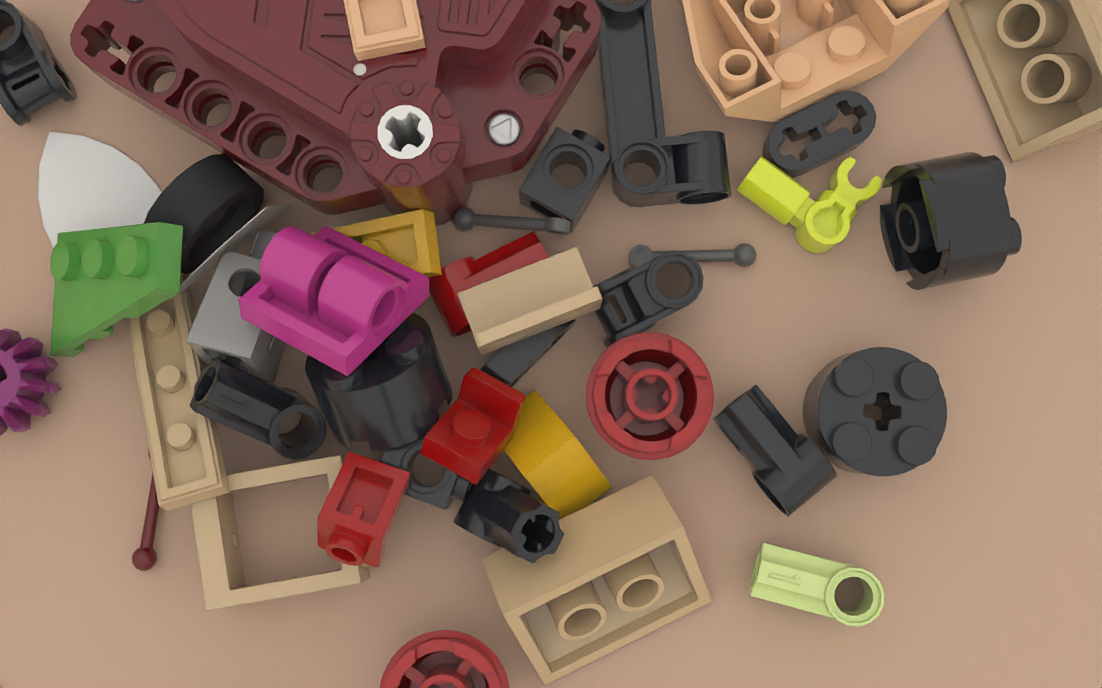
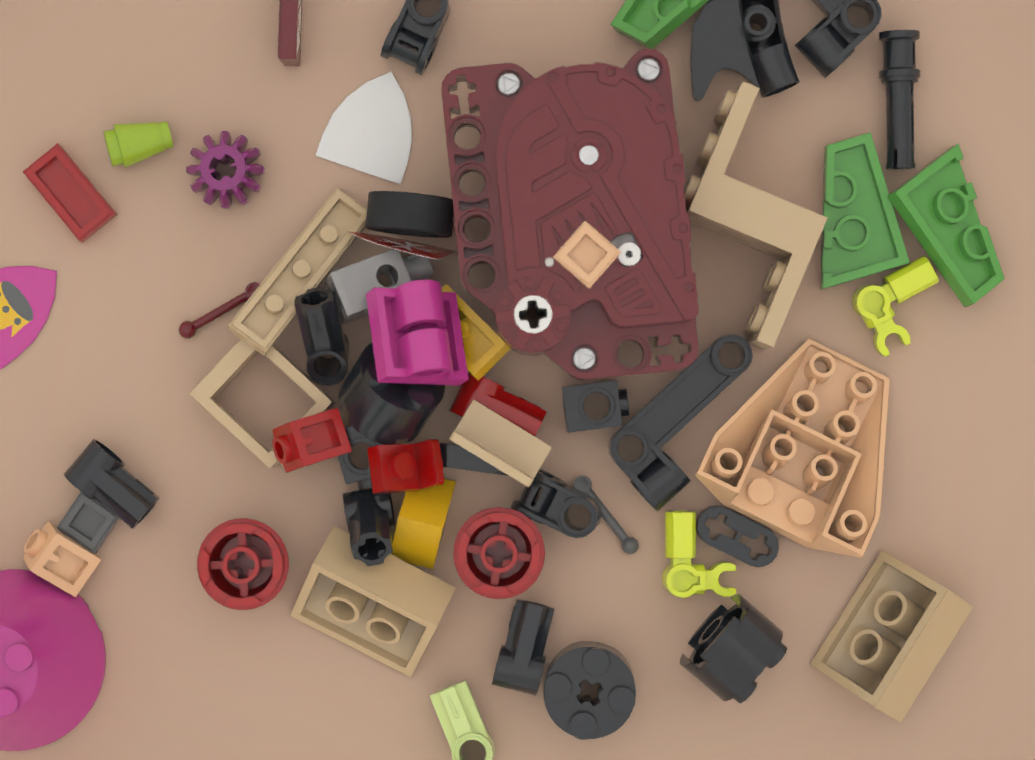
camera: 50 degrees right, 5 degrees up
(110, 277) = (331, 191): bright green wing -> none
(466, 219) = (526, 364): dark grey hinge -> none

